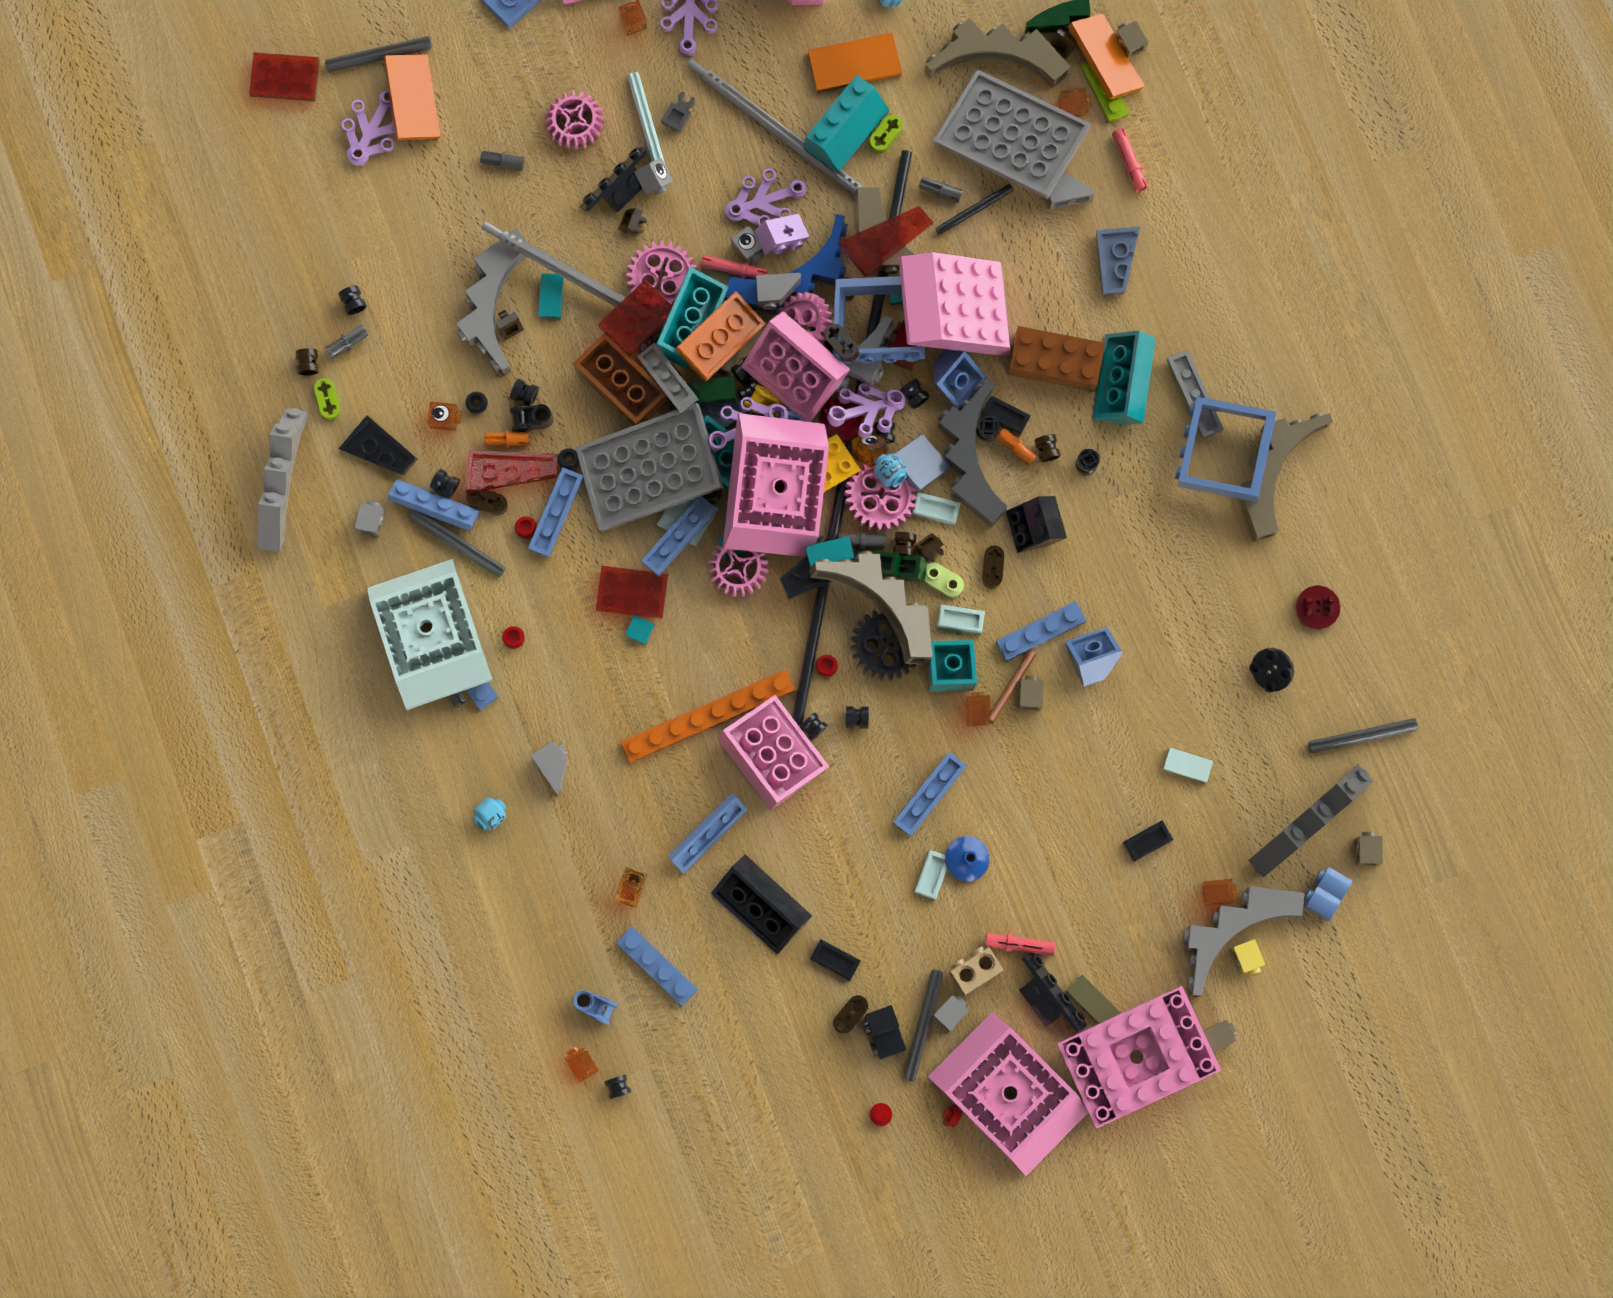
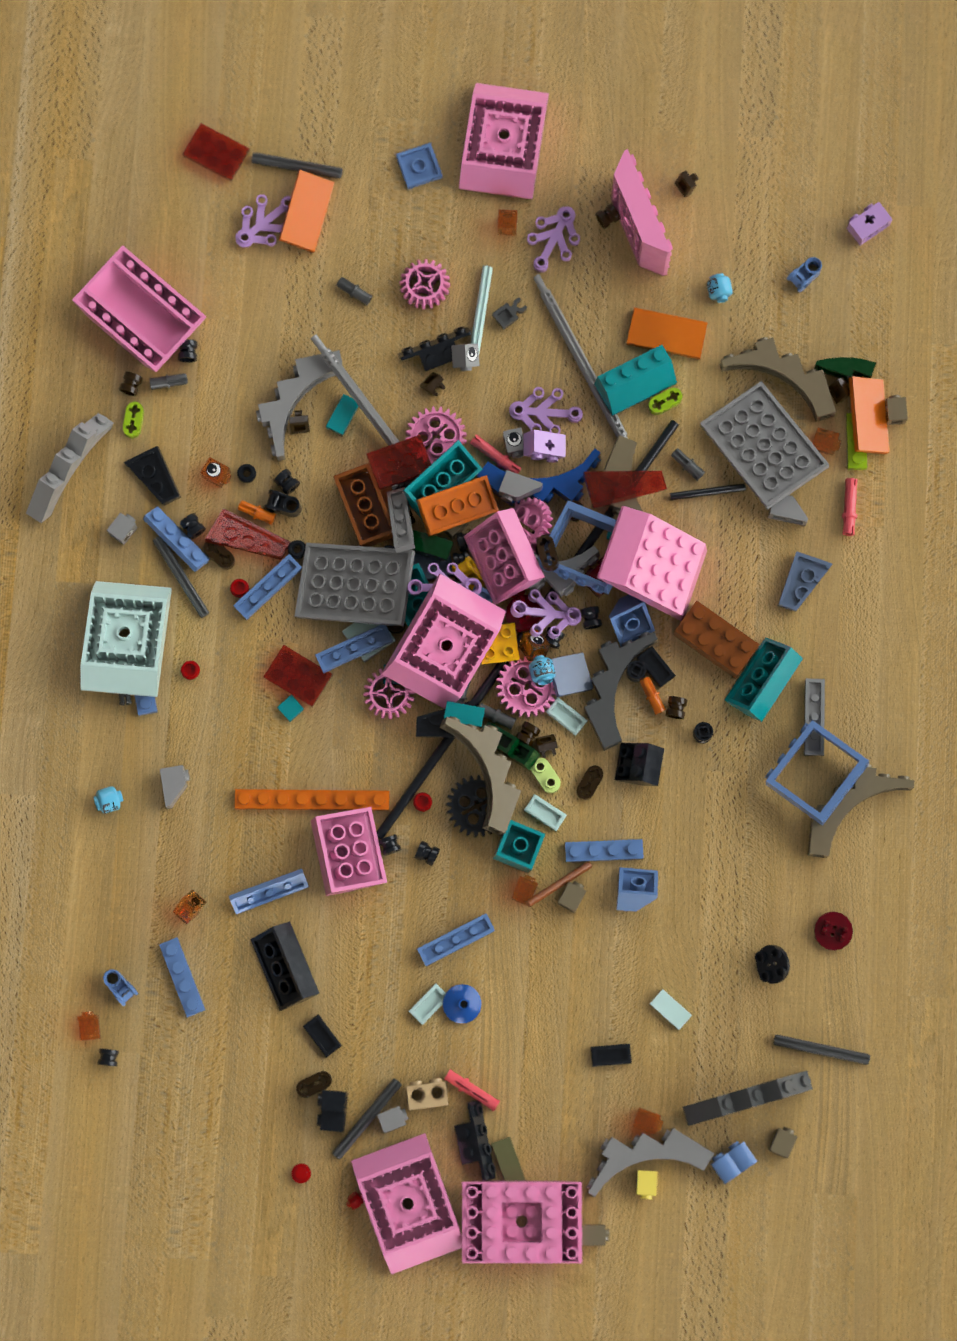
camera: 30 degrees right, 0 degrees up
(279, 278) = (138, 309): none -> bright pink slope

